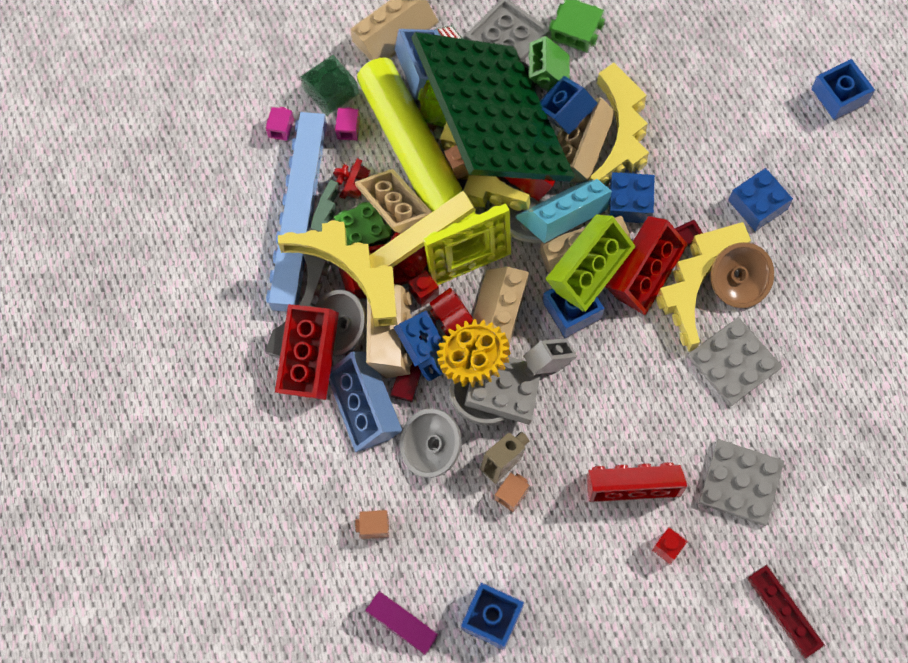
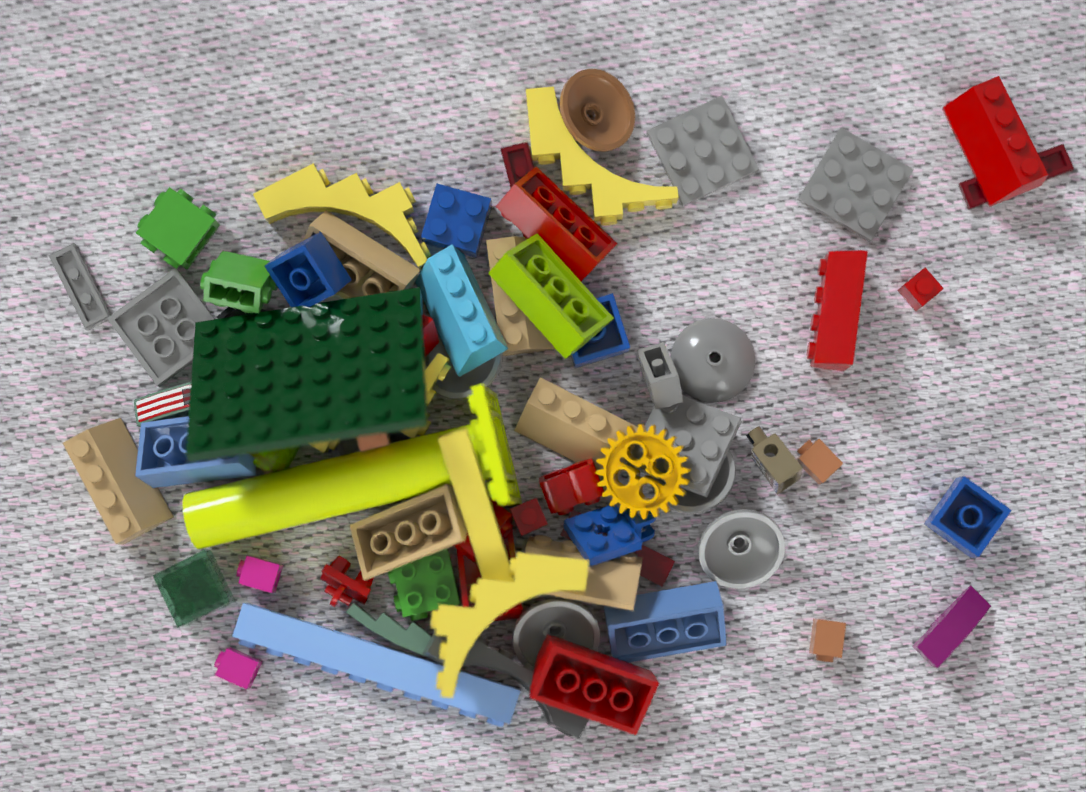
camera: 80 degrees left, 15 degrees up
(568, 413) = (711, 380): none -> light grey dish
(760, 199) = (495, 58): blue brick -> none
(808, 583) = (995, 142): none -> red slope

